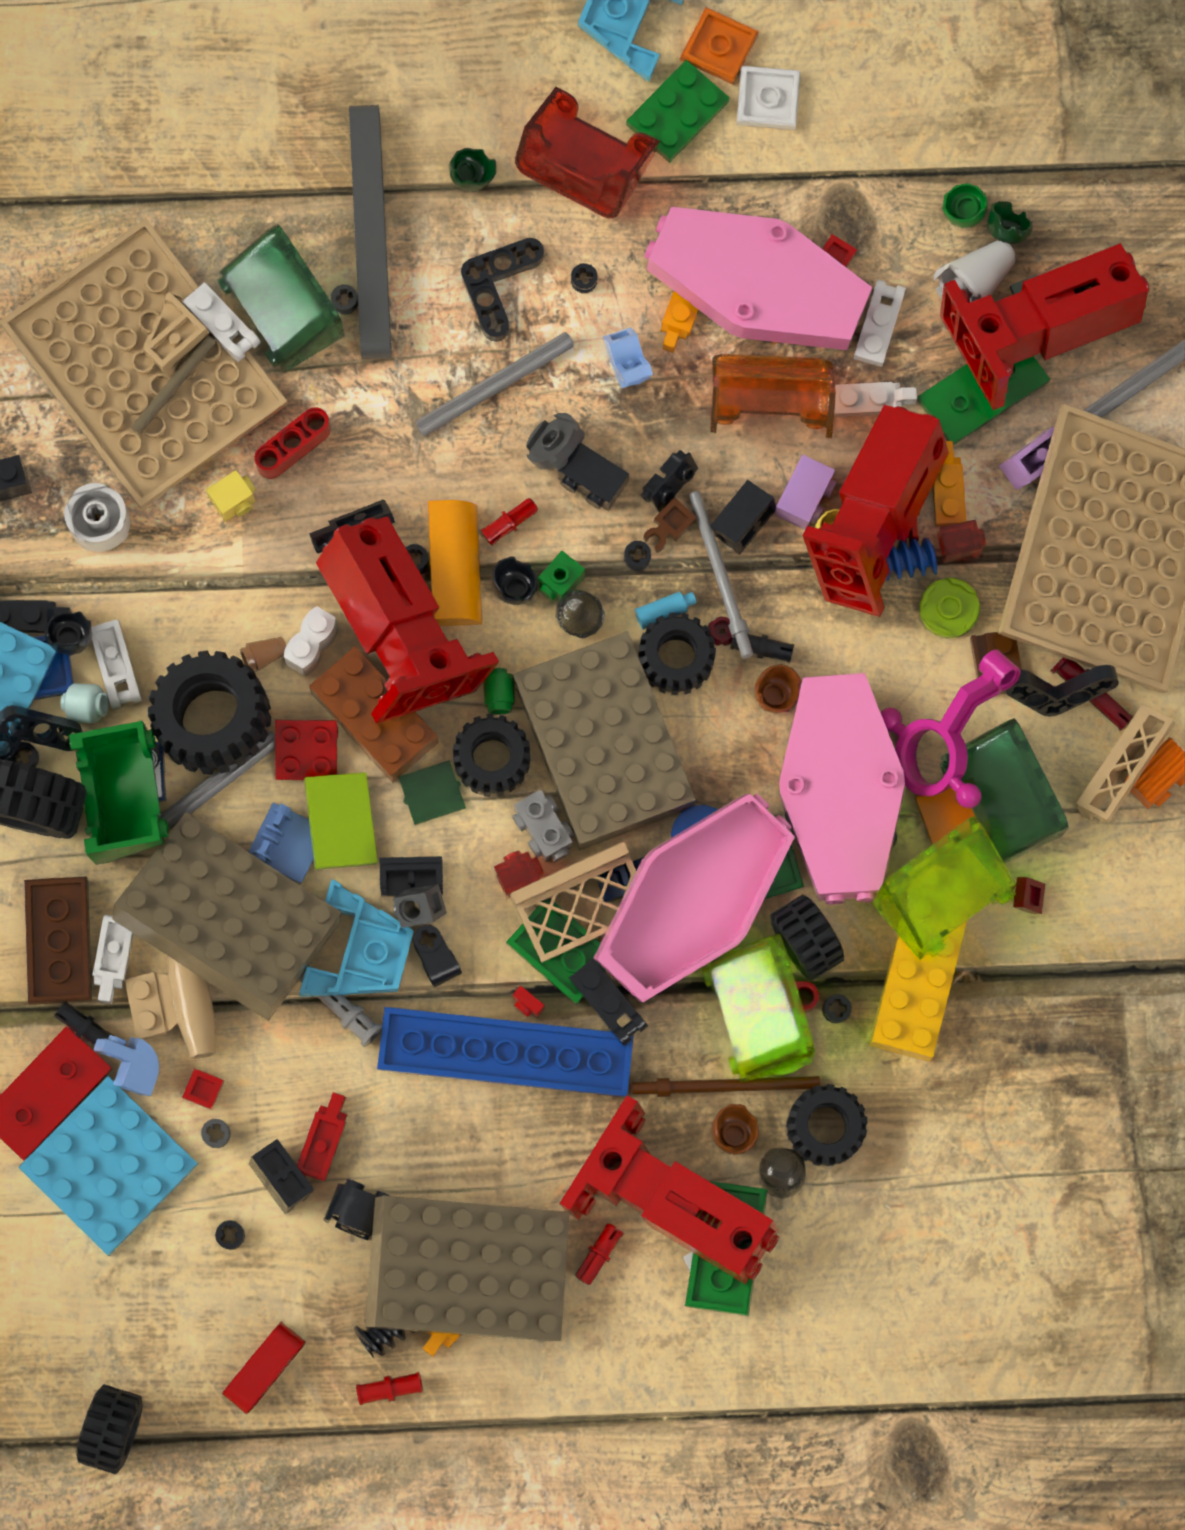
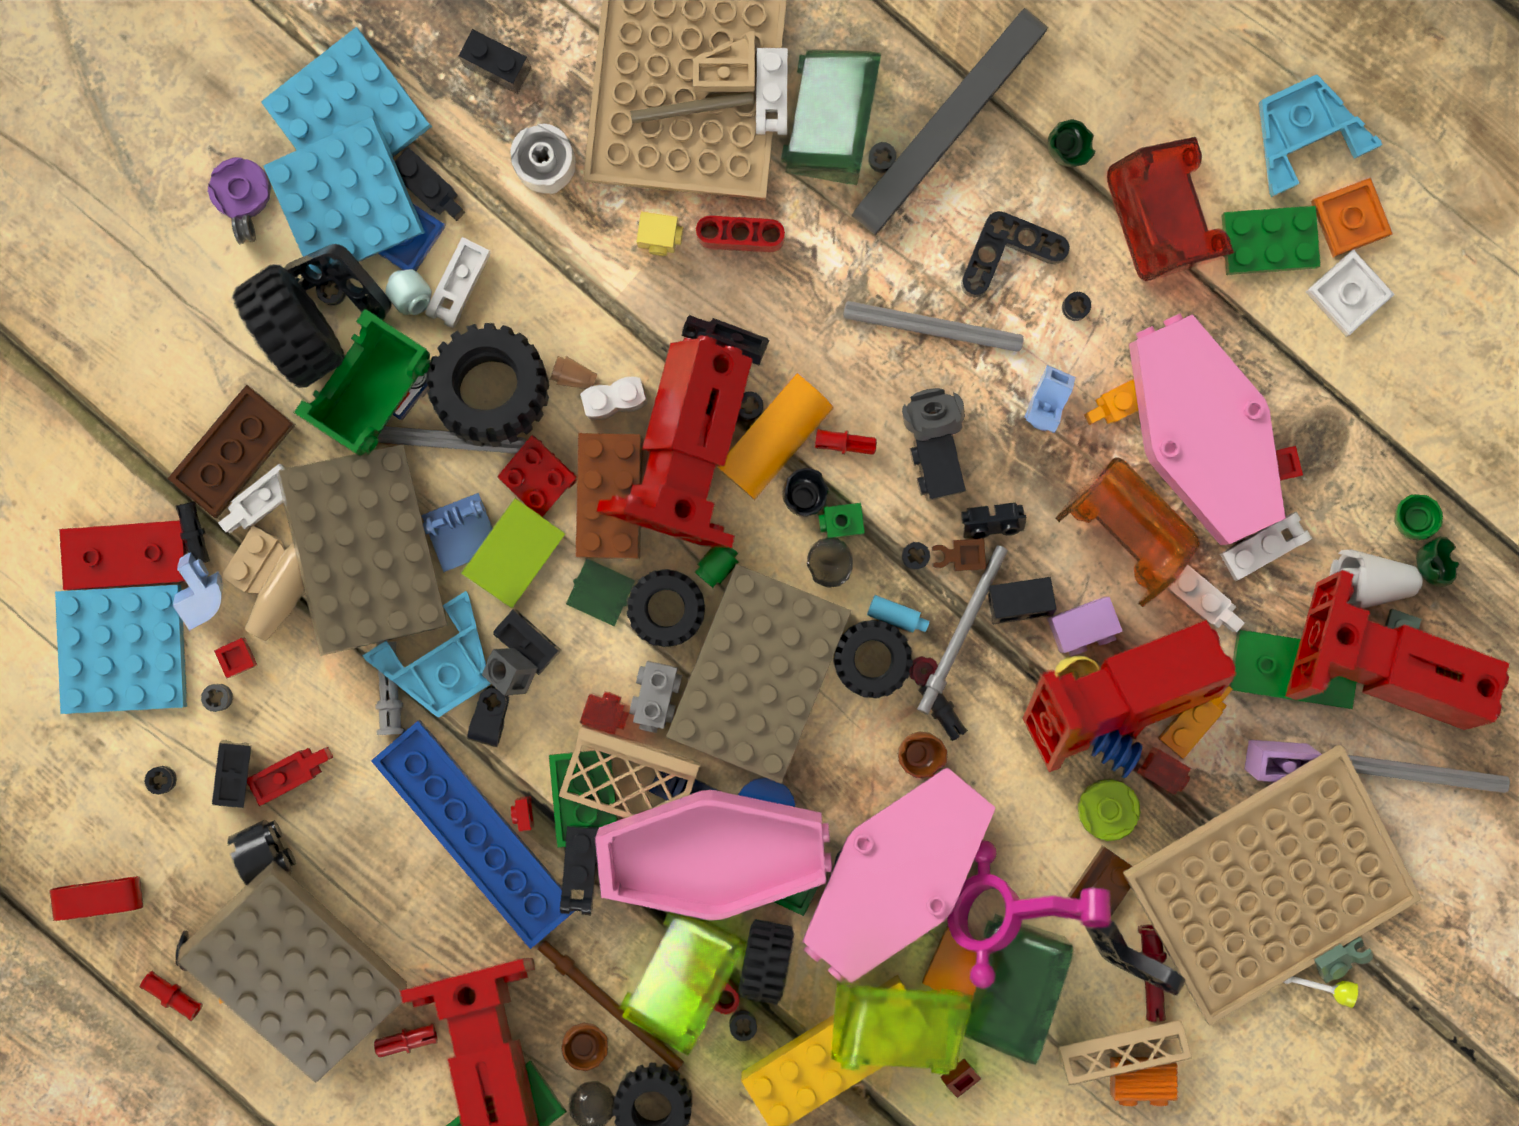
camera: 50 degrees right, 10 degrees up
(68, 633) = (441, 228): black hair -> none

